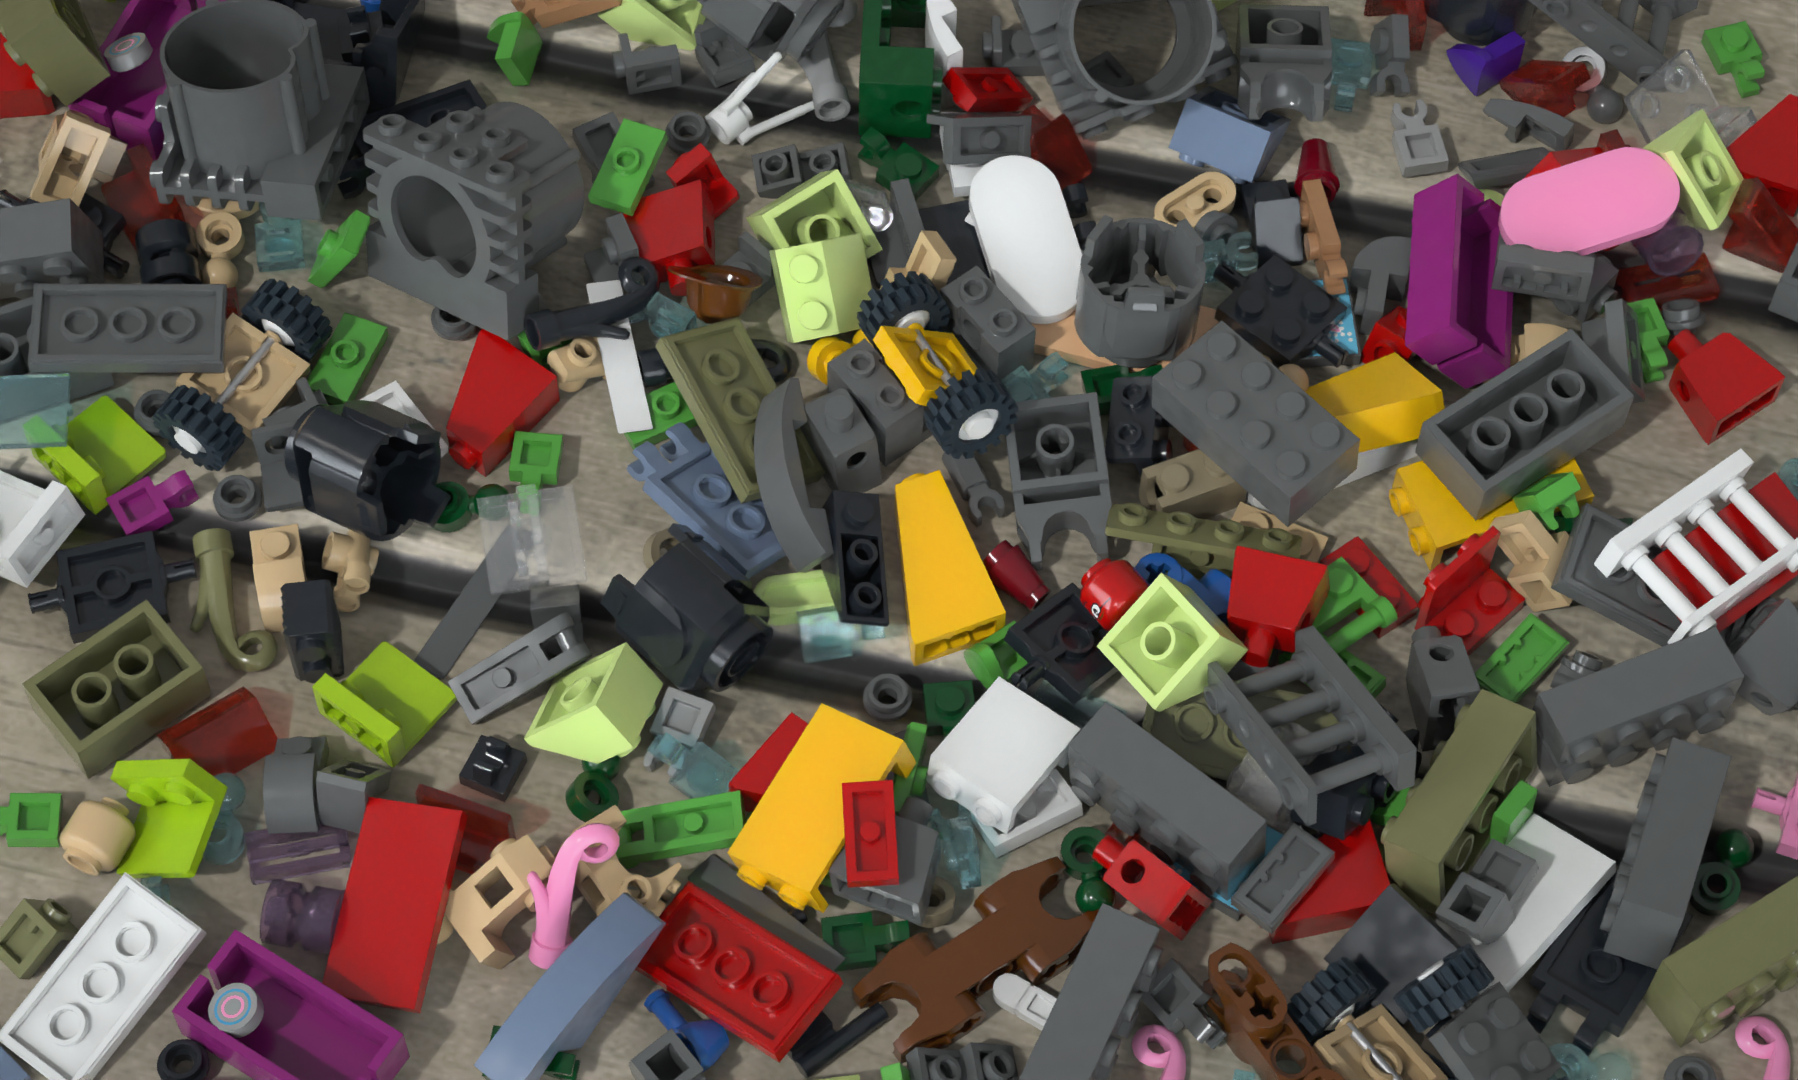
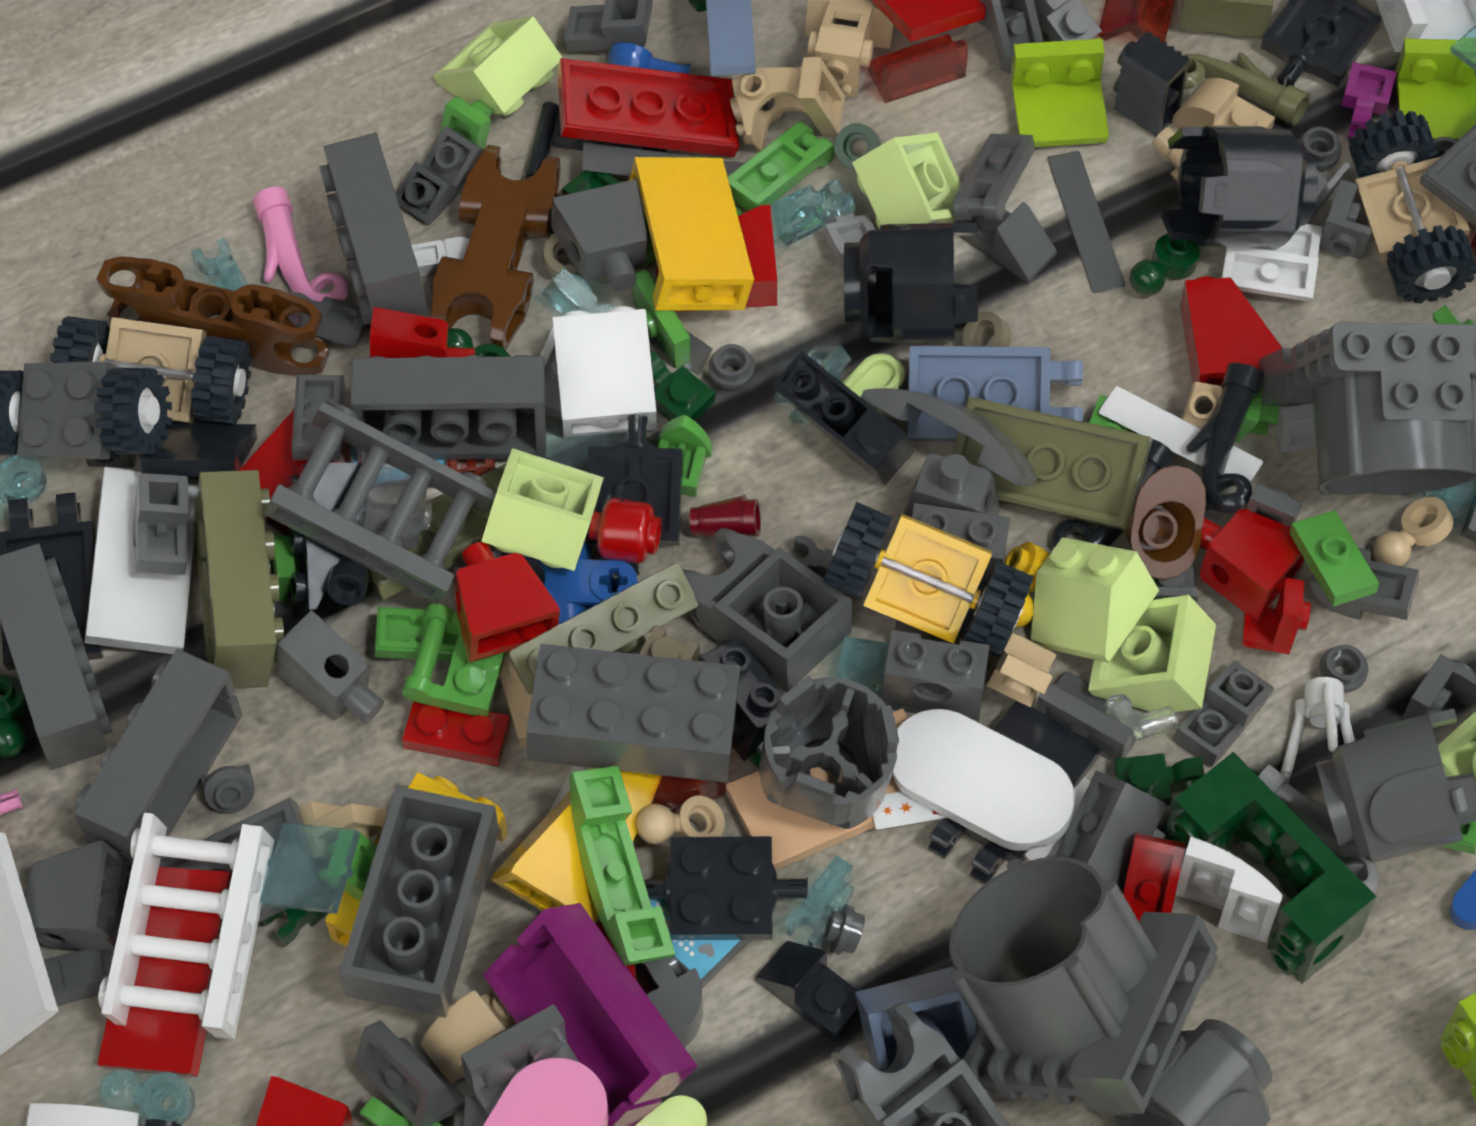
camera: 140 degrees right, 0 degrees up
(347, 358) = (1366, 290): bright green plate -> none
(493, 767) = (949, 119): black tile -> none
(531, 539) = (1084, 263): clear bracket -> none
(536, 458) = (1149, 326): bright green plate -> none
(554, 901) = (791, 46): bright pink plant -> none
(870, 833) = (623, 200): red plate -> none
(943, 577) = (786, 473): yellow slope -> none
(1190, 199) = (885, 944): tan plate -> none
(1317, 164) = (810, 1058): dark red cone -> none
(1321, 237) = (745, 982): medium nougat plate -> none
(1364, 345) = (612, 867): none -> bright green slope
(1468, 594) = (363, 759): red bracket -> none
(1513, 813) = (192, 619): bright green tile -> none
(1521, 659) = (285, 755): bright green plate -> none
(1587, 504) = (310, 867): none -> clear light blue piece

